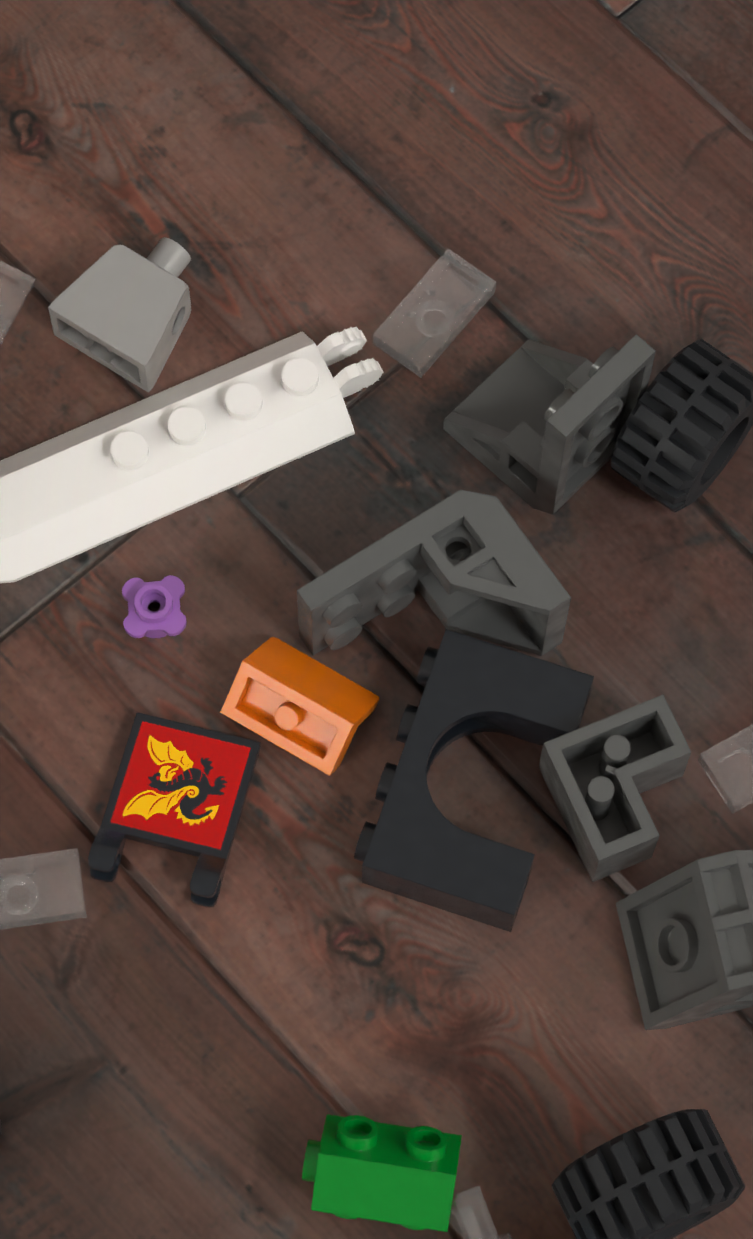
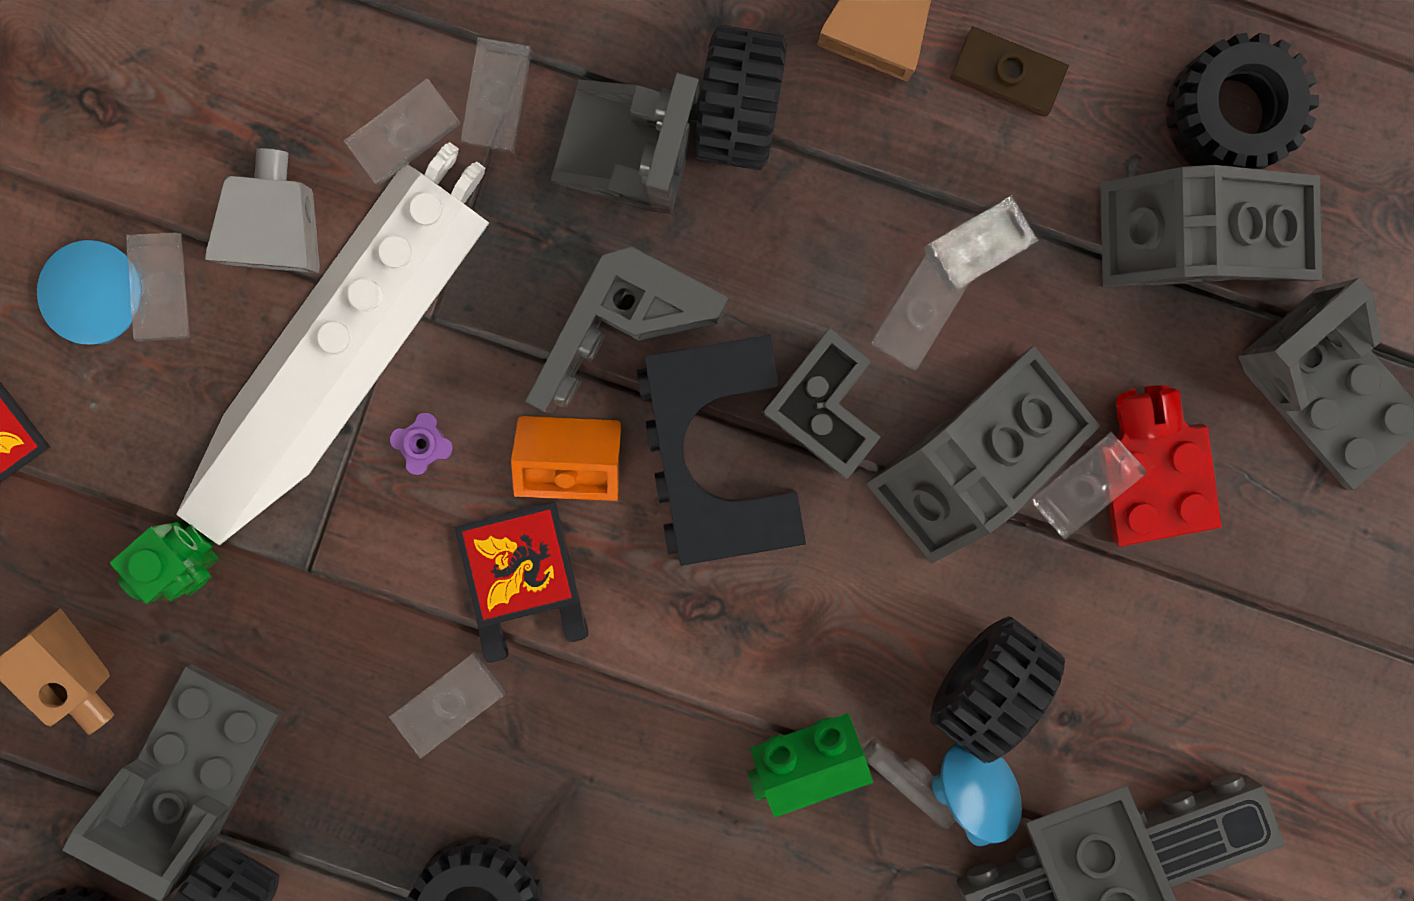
camera: 30 degrees left, 20 degrees up
(318, 299) = (402, 132): none -> clear plate

